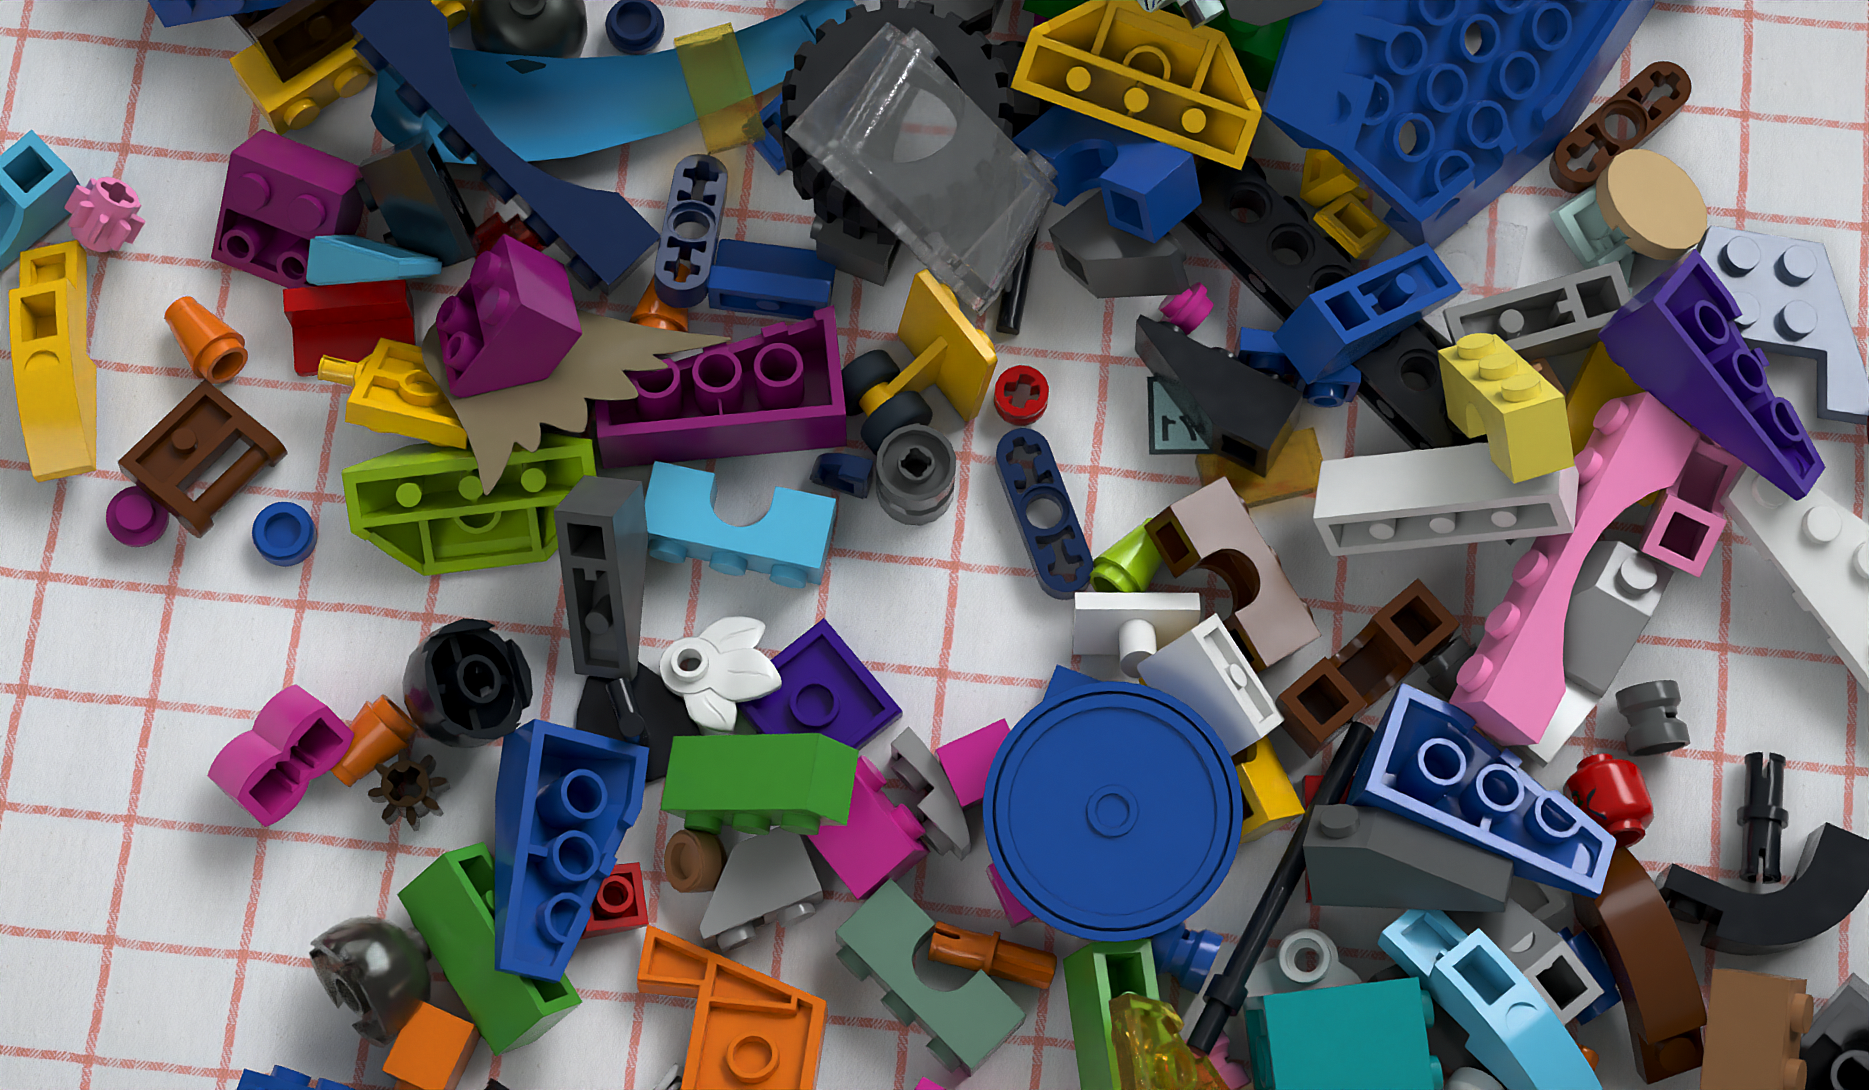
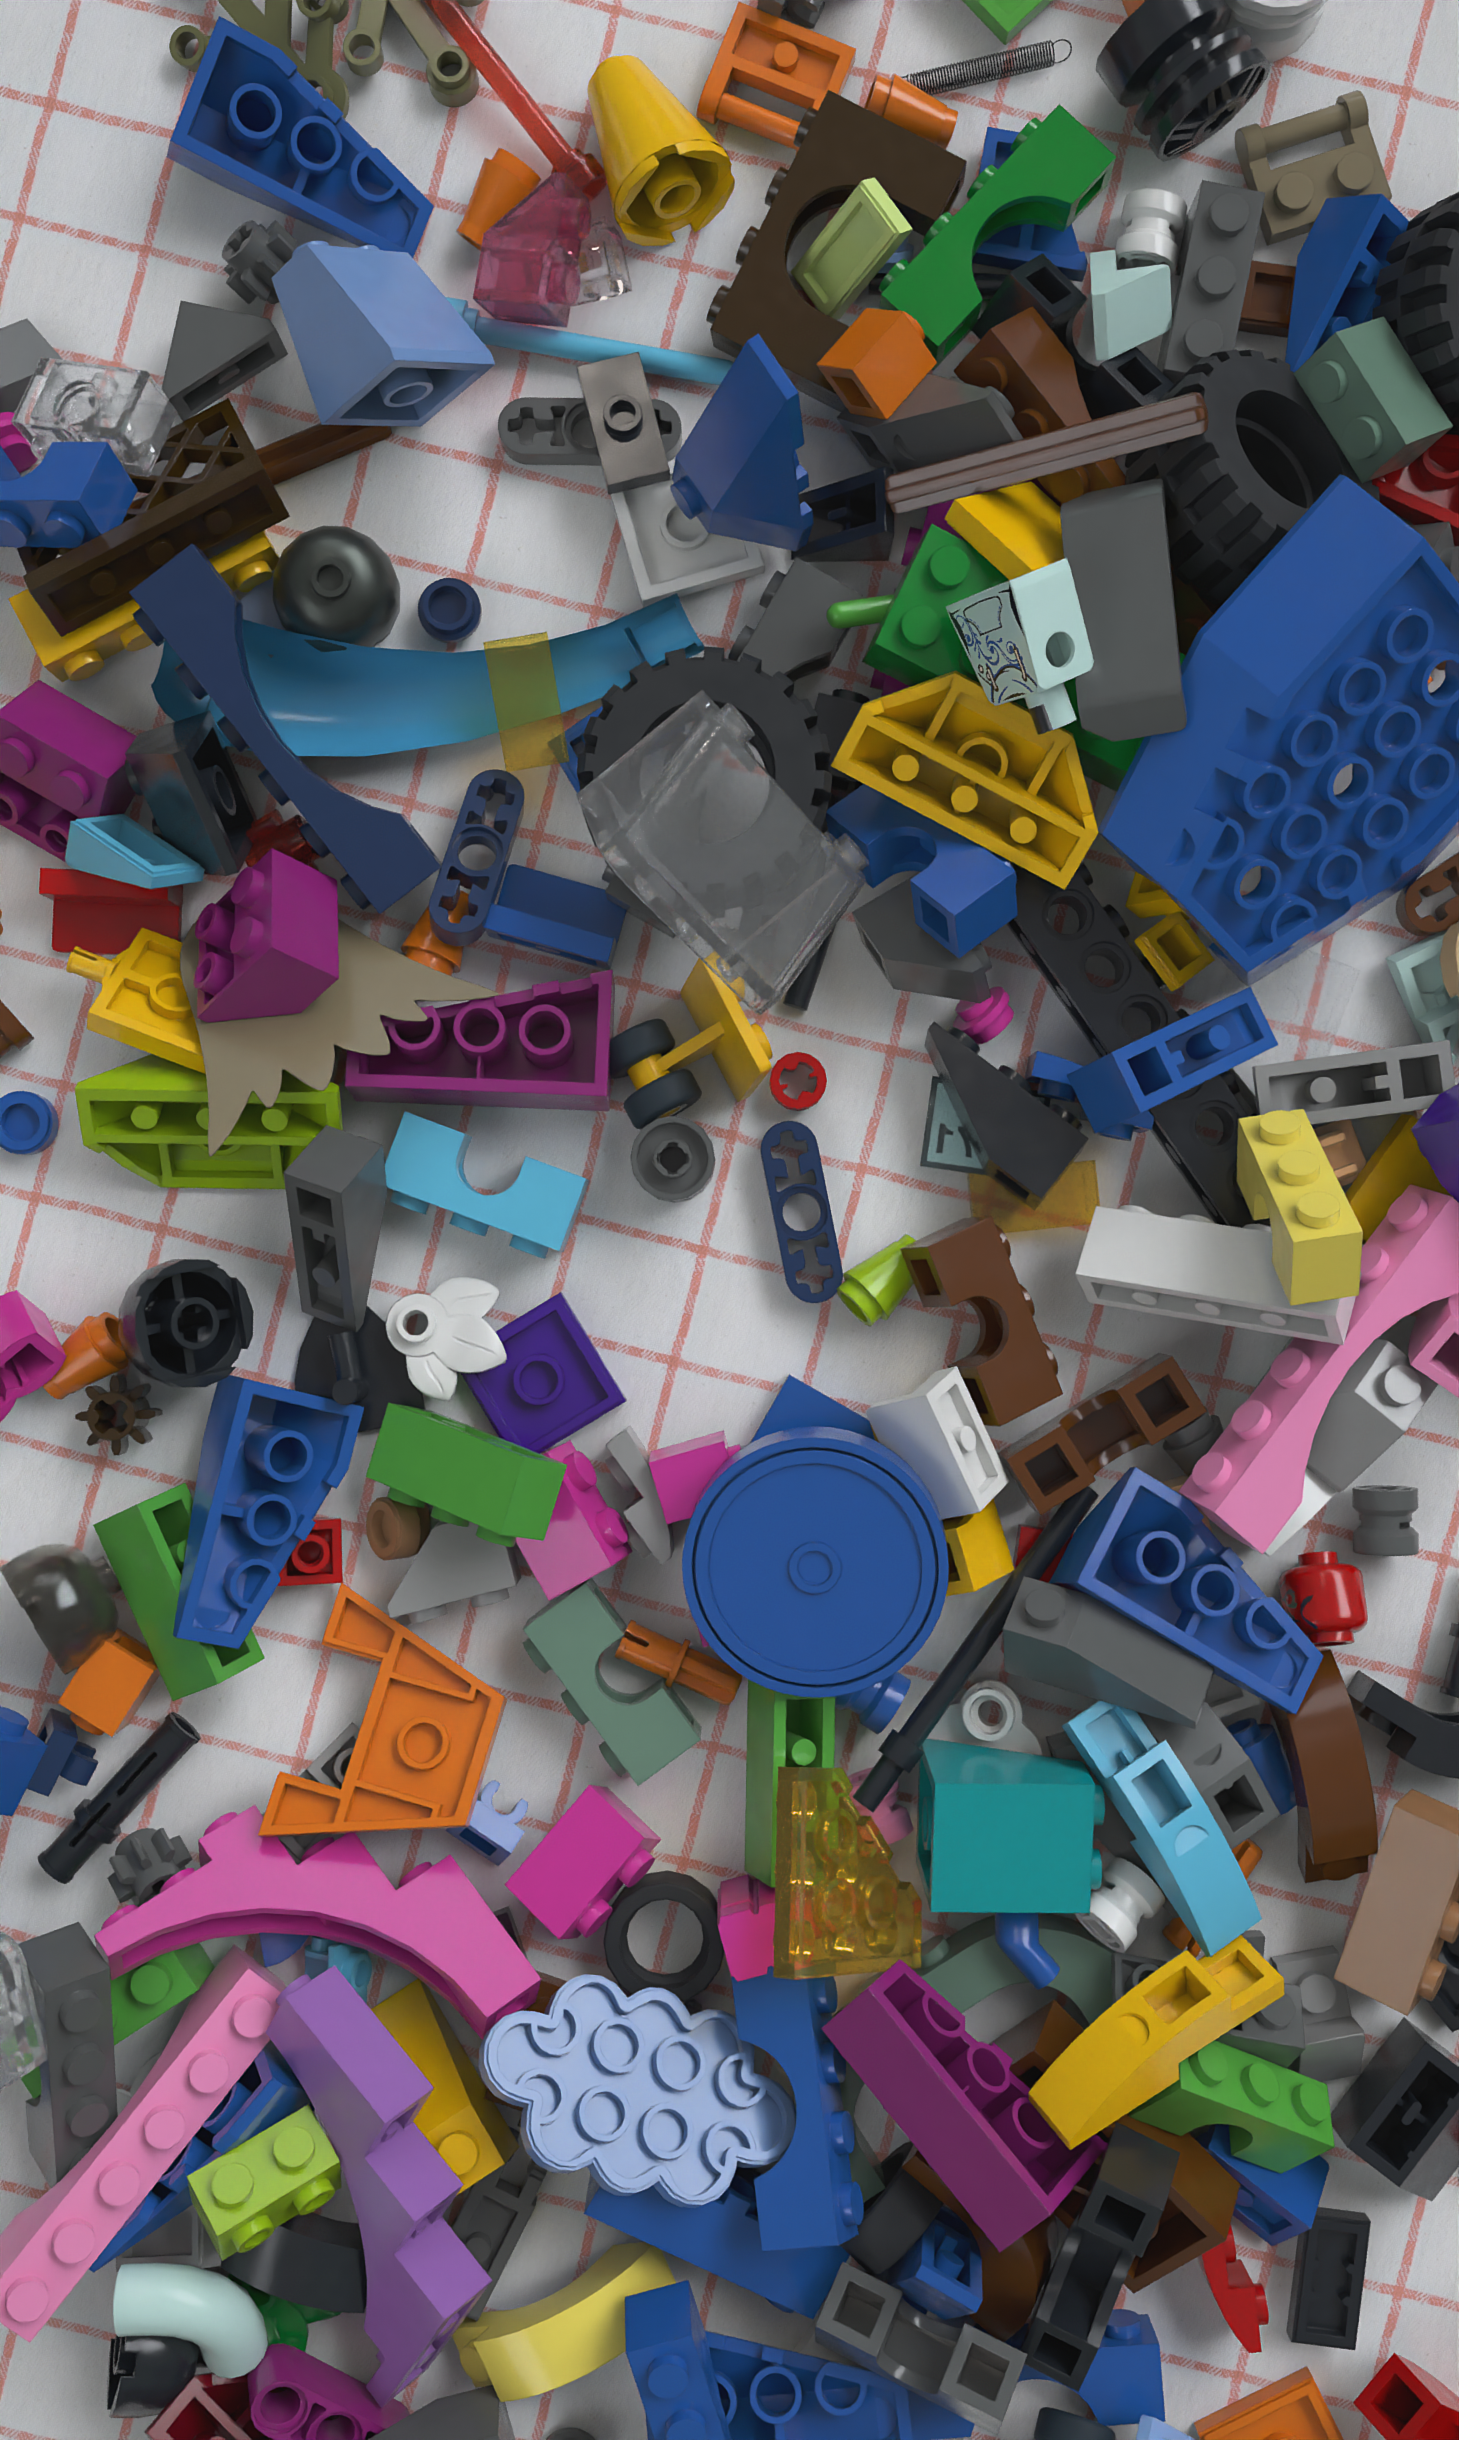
camera: 10 degrees right, 15 degrees up
(844, 473) = (600, 1142): dark blue tile -> none
(1131, 624) = (875, 1352): white tile -> none

